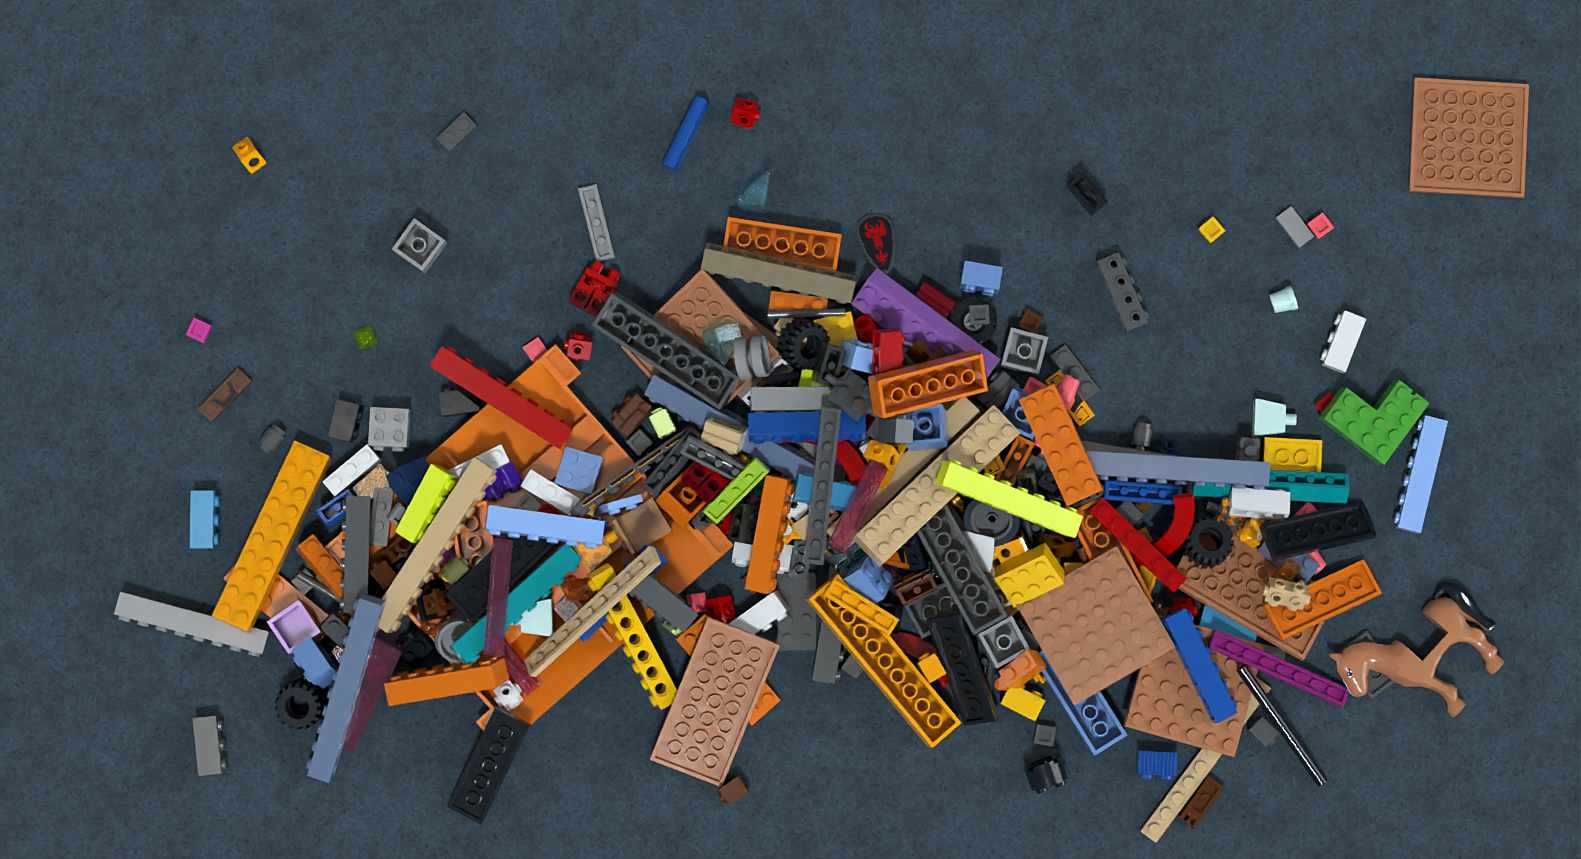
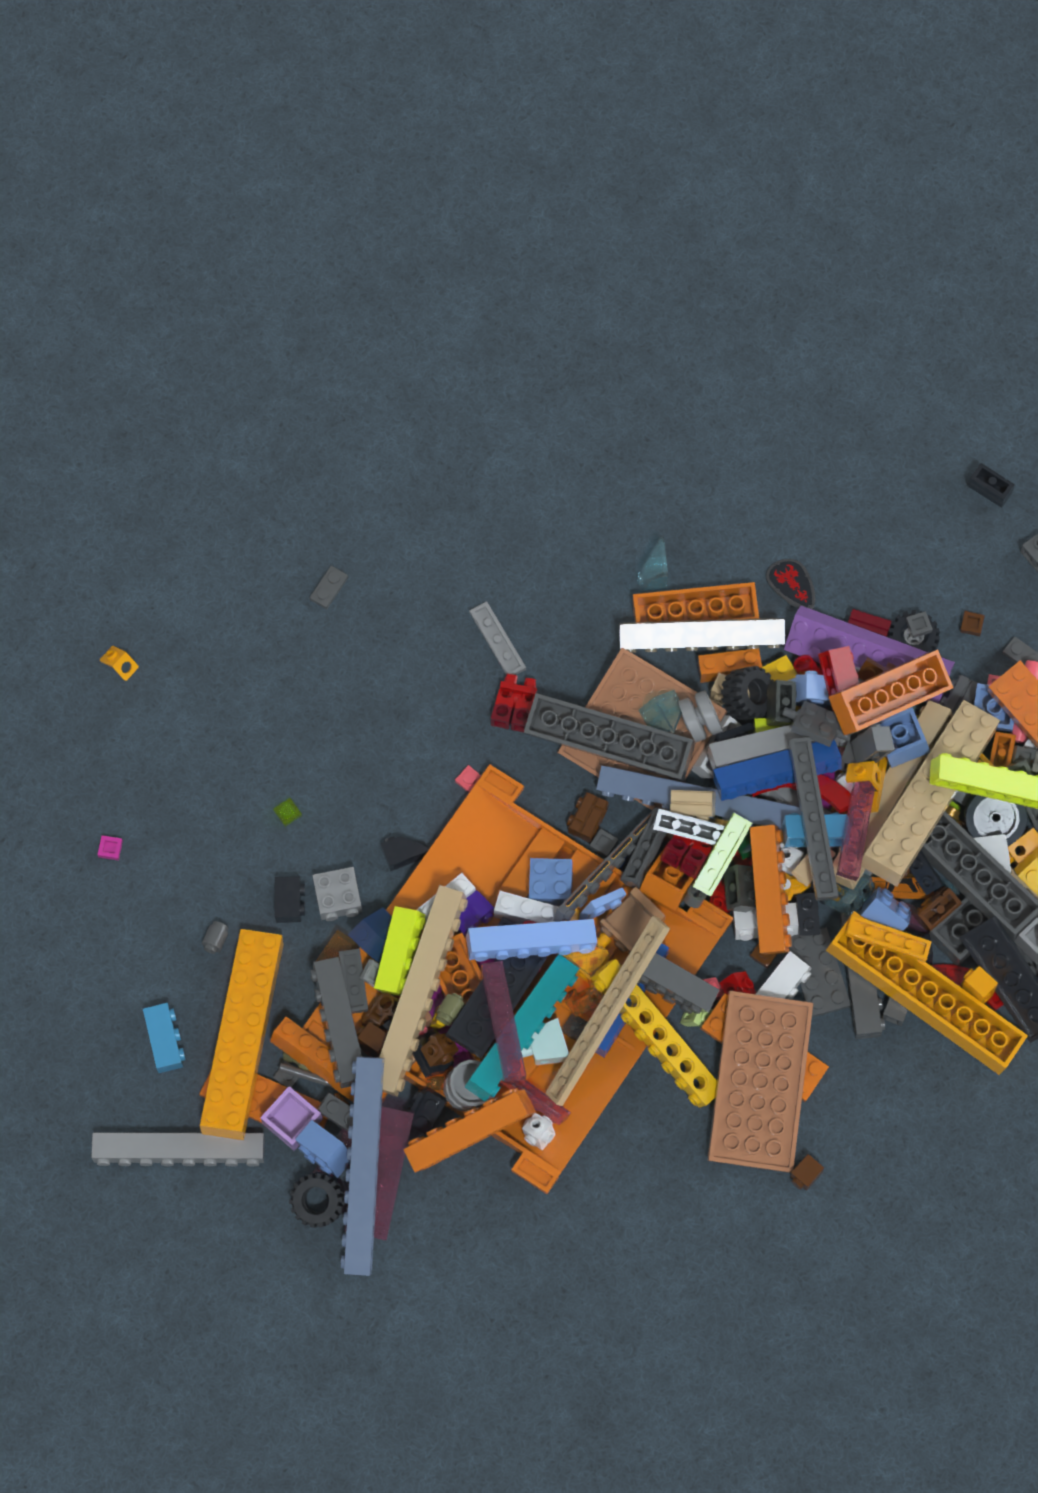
camera: 15 degrees left, 15 degrees down
(209, 745) = (229, 1272): brick -> none
(225, 395) = (153, 906): reddish brown tile -> none
(334, 510) = (301, 990): blue brick -> none
(352, 471) = (309, 947): white brick -> none
(419, 246) = (321, 704): light grey brick -> none
(489, 765) = (538, 1211): black plate -> none
(500, 397) = (448, 829): red brick -> none
(578, 345) = (520, 764): red brick -> none
(663, 423) = (624, 814): yellowish green brick -> none
(685, 133) = (565, 530): blue brick -> none
(745, 113) = (620, 494): red brick -> none
(806, 313) = (755, 662): dark grey bar -> none
(980, 278) = (909, 590): medium blue brick -> none
(1024, 351) = (975, 652): light grey brick -> none

